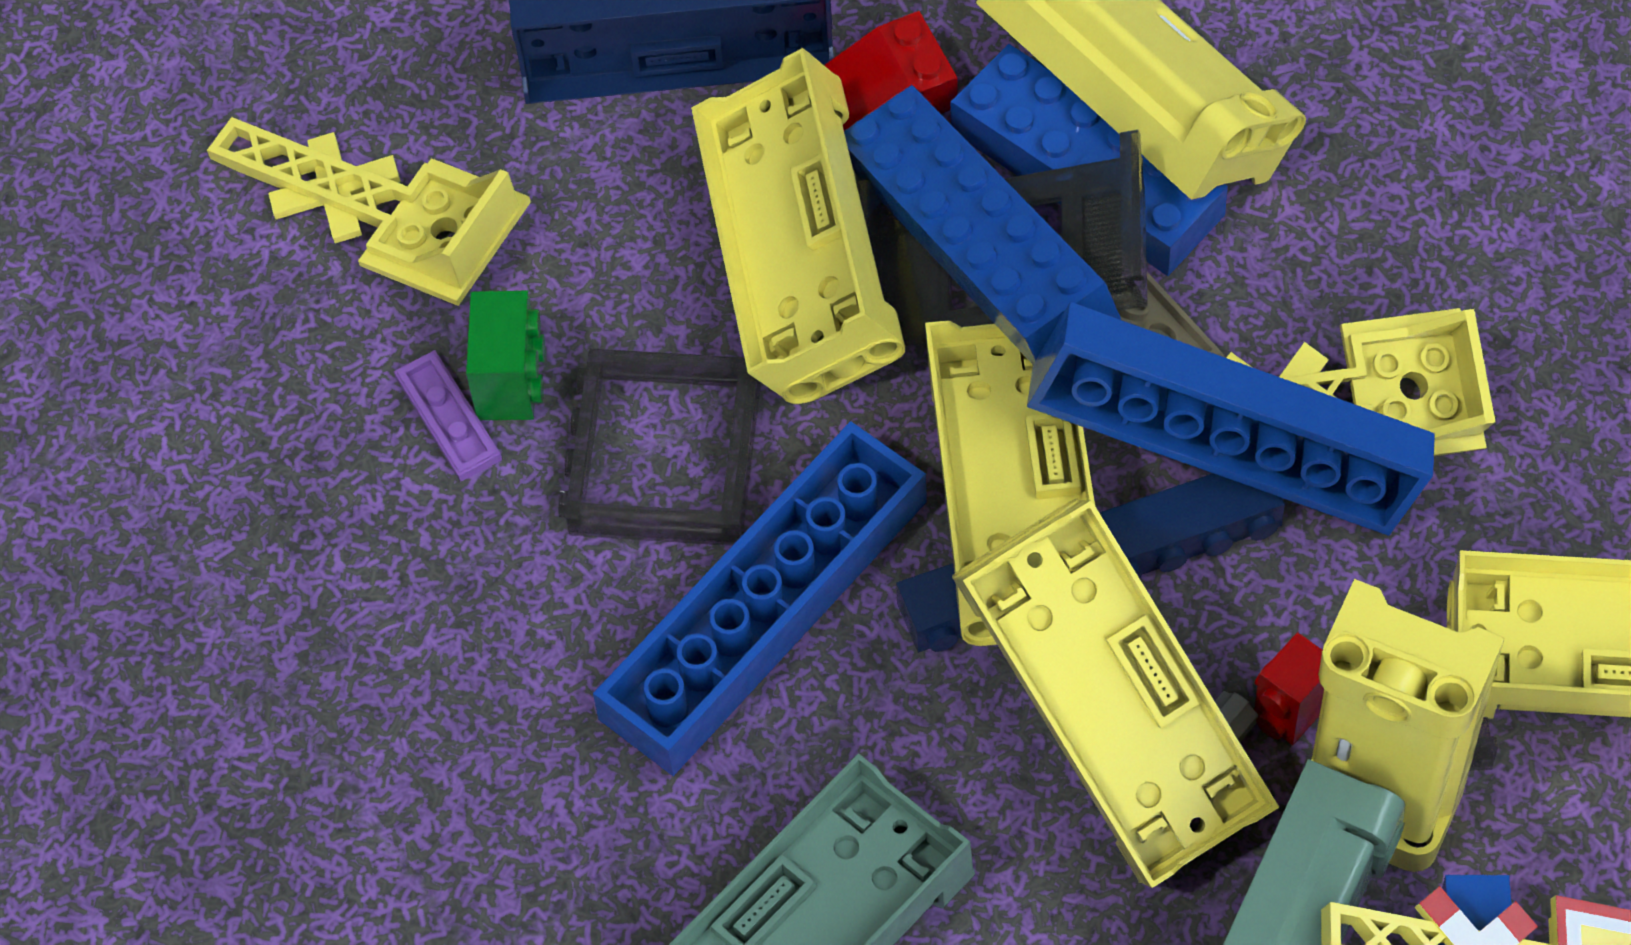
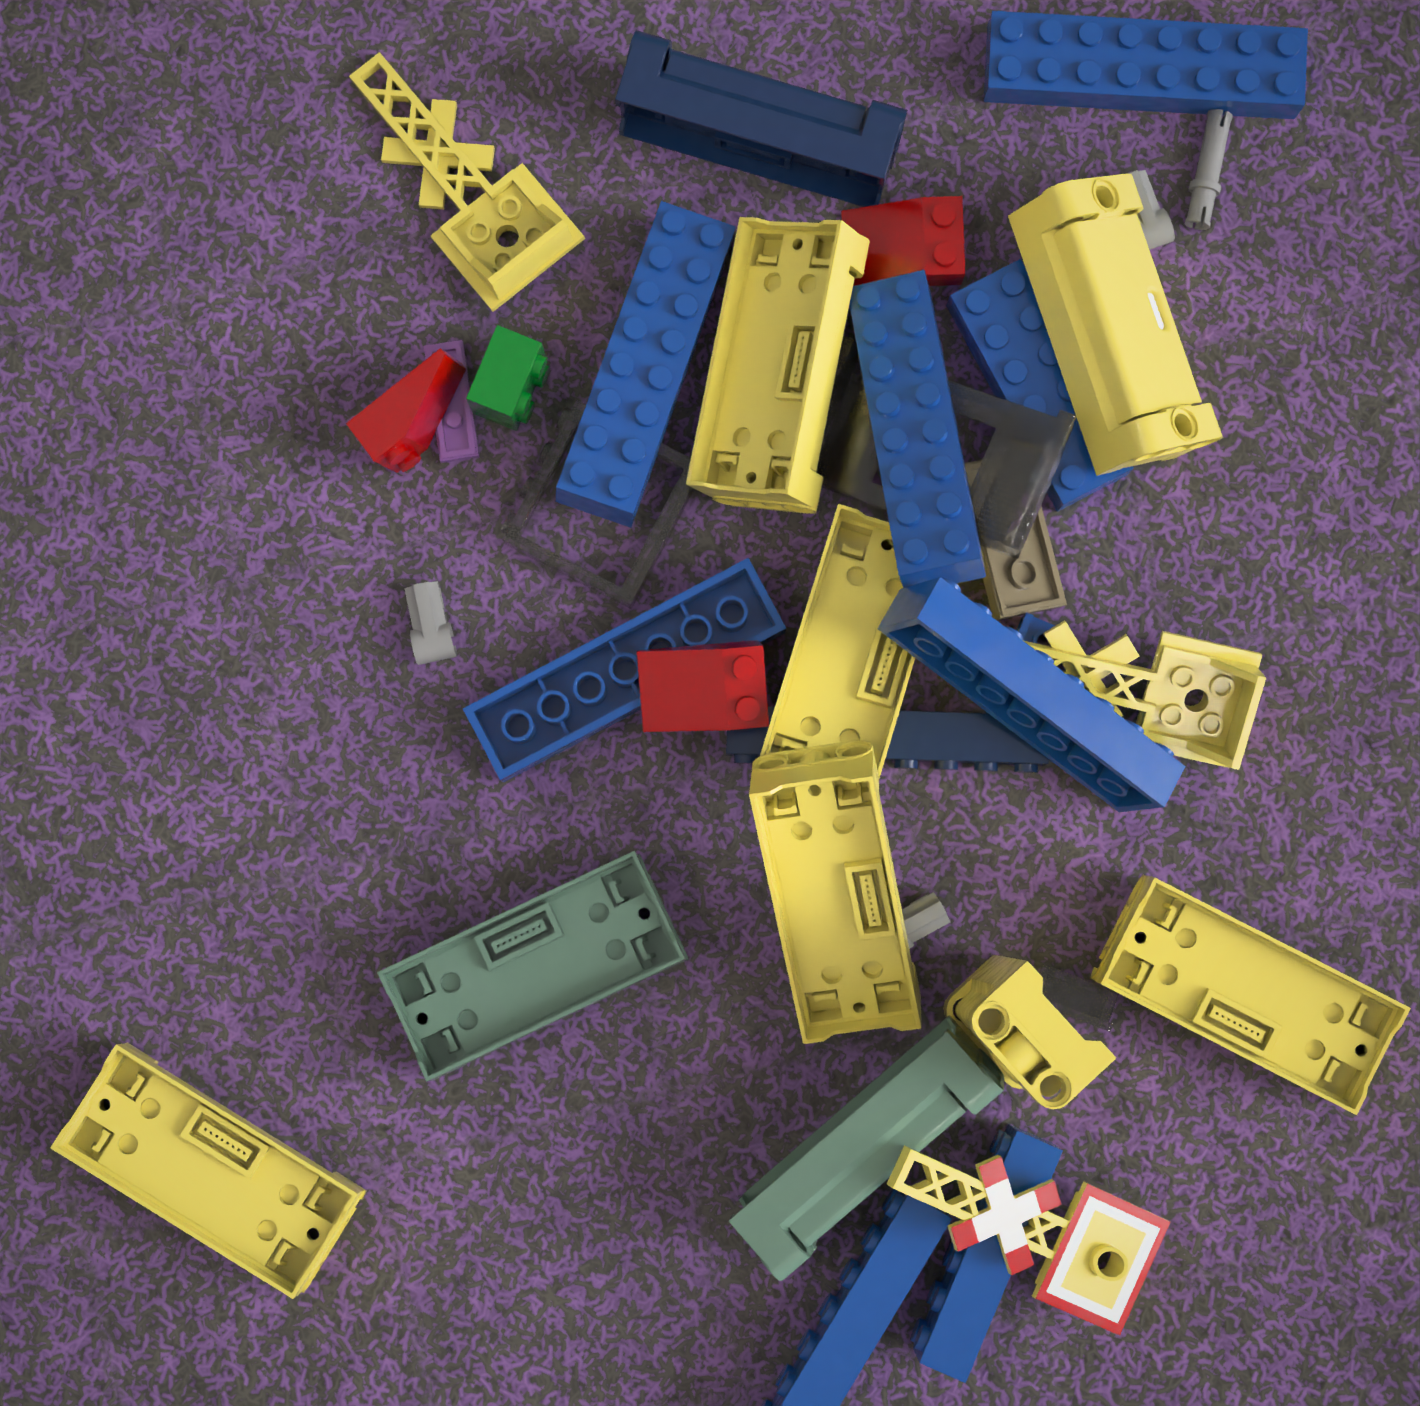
camera: 20 degrees right, 25 degrees up
(403, 426) = (406, 416): none -> red slope
(518, 644) = (431, 631): none -> light grey piece
(650, 287) = (645, 364): none -> blue brick
(861, 558) = (703, 687): none -> red slope
(1290, 690) = (982, 920): red brick -> none

